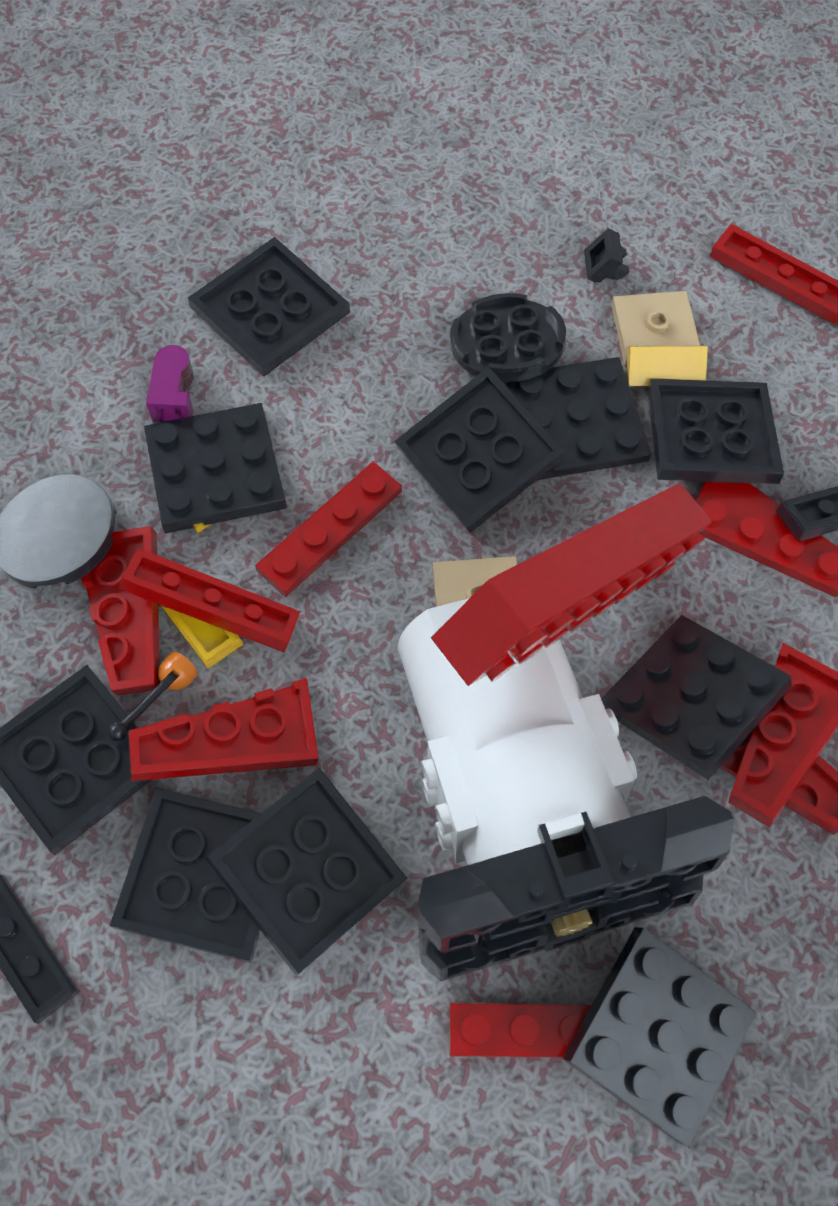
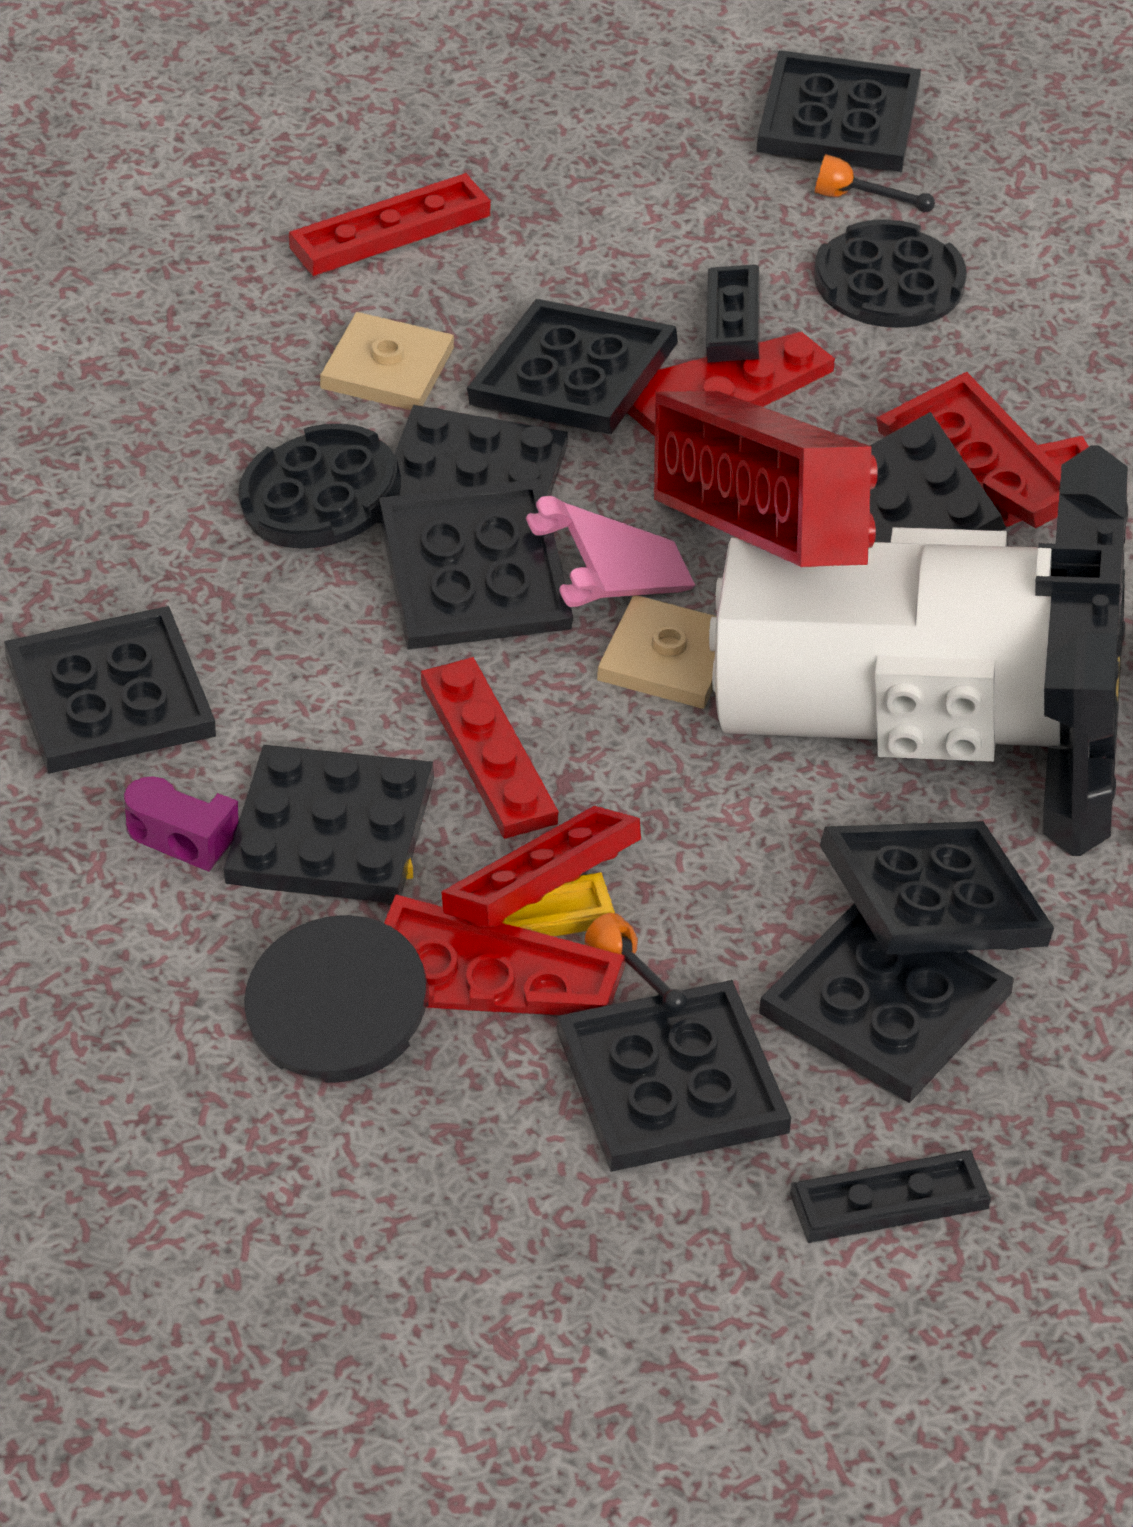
camera: 65 degrees left, 20 degrees down
(243, 736) = (735, 907): red wing -> none
(535, 523) = (616, 555): none -> bright pink flag
(605, 257) = (258, 357): black tile -> none
(665, 363) = (453, 367): yellow tile -> none

